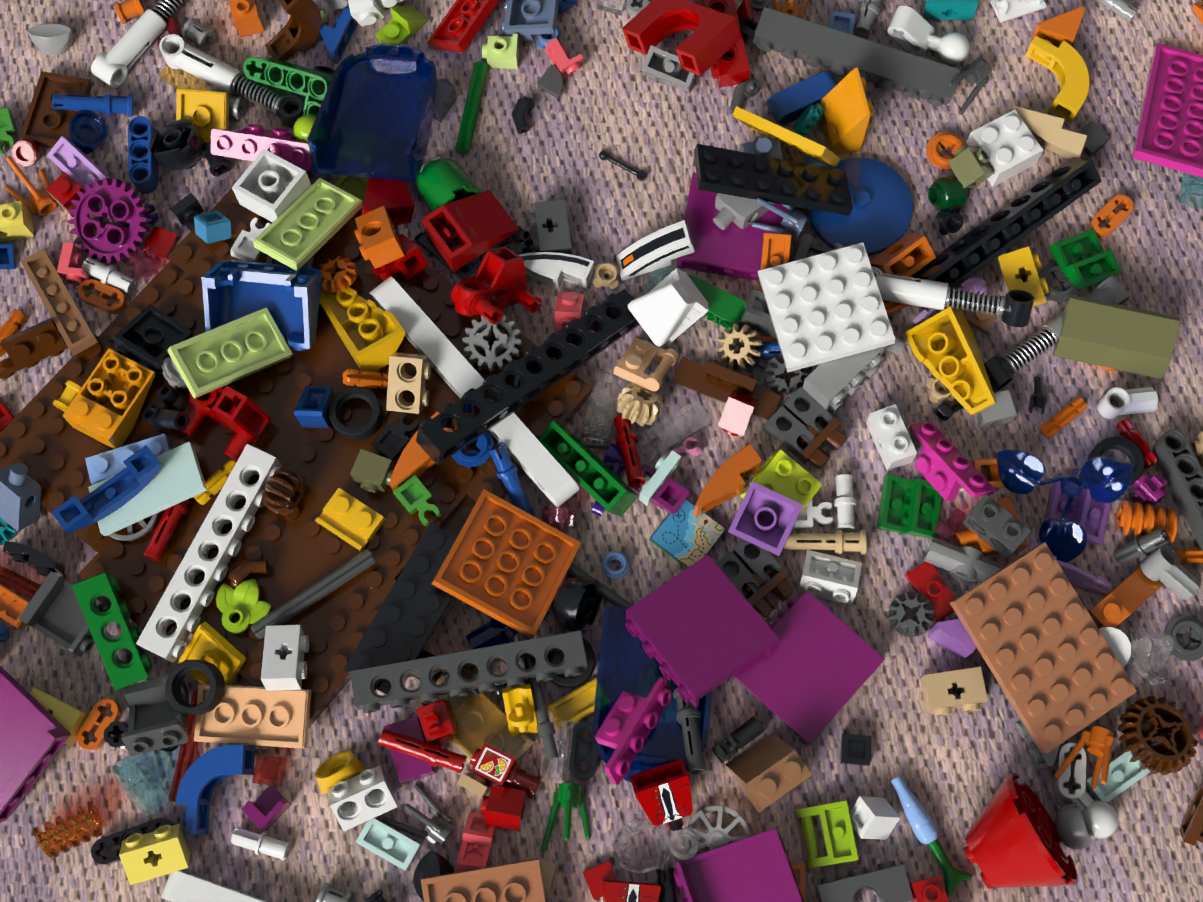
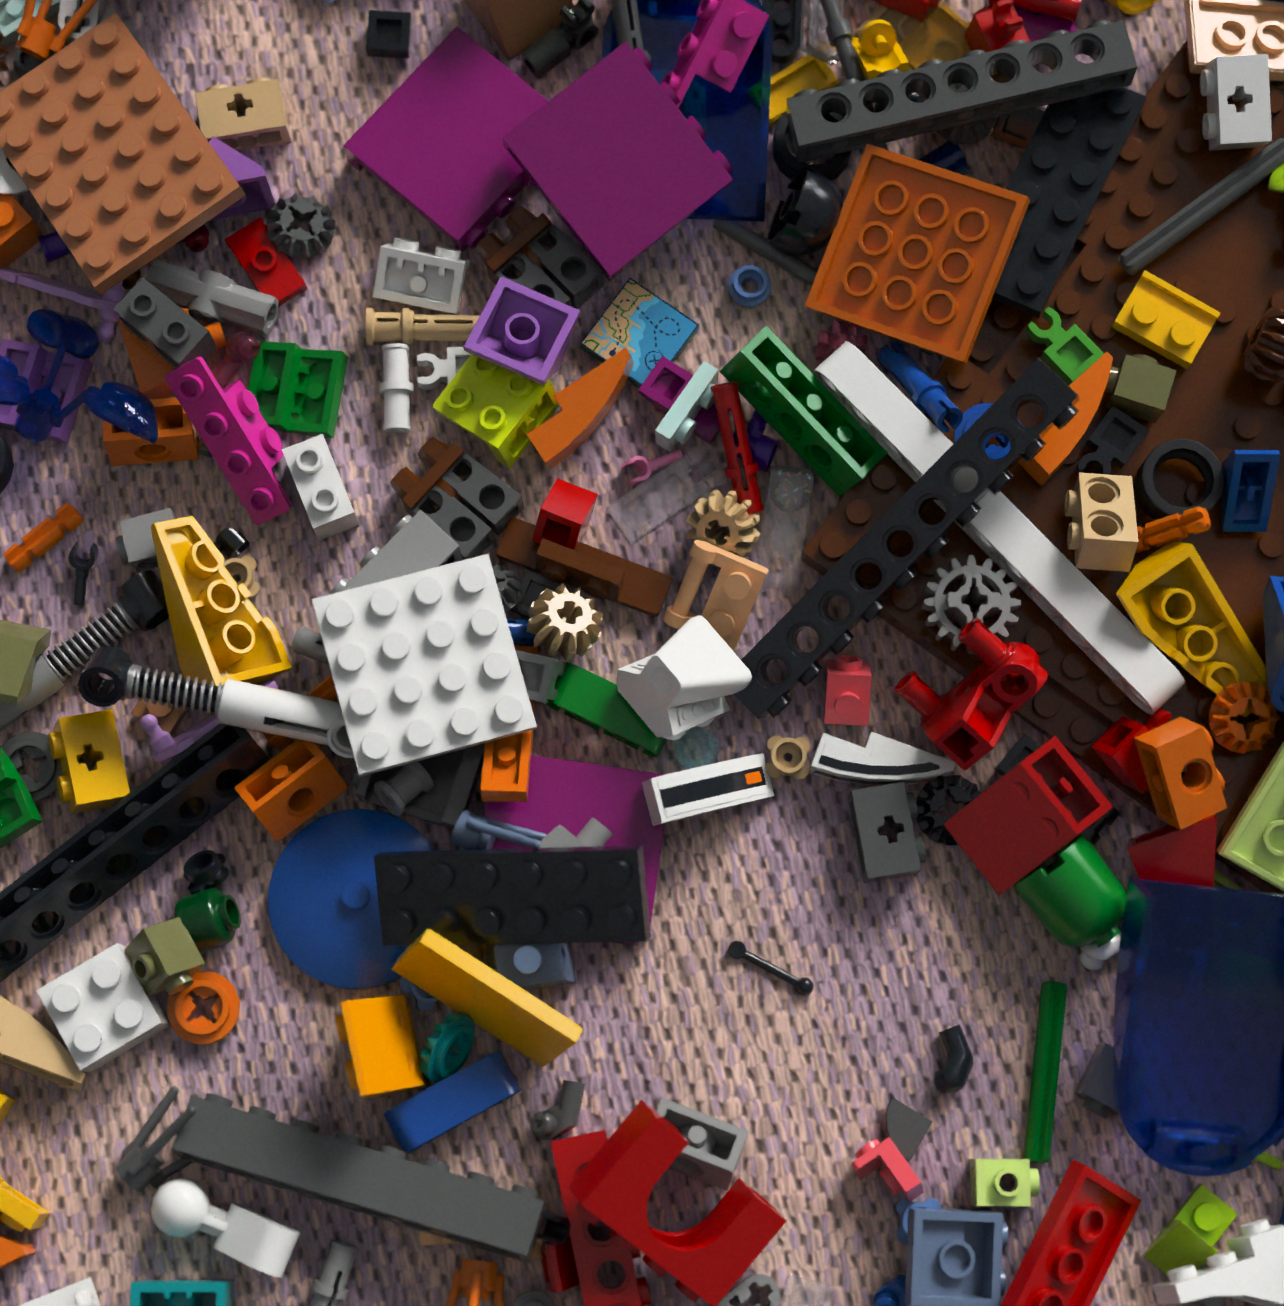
camera: 170 degrees right, 5 degrees up
(842, 21) = (383, 1256): medium blue plate -> none

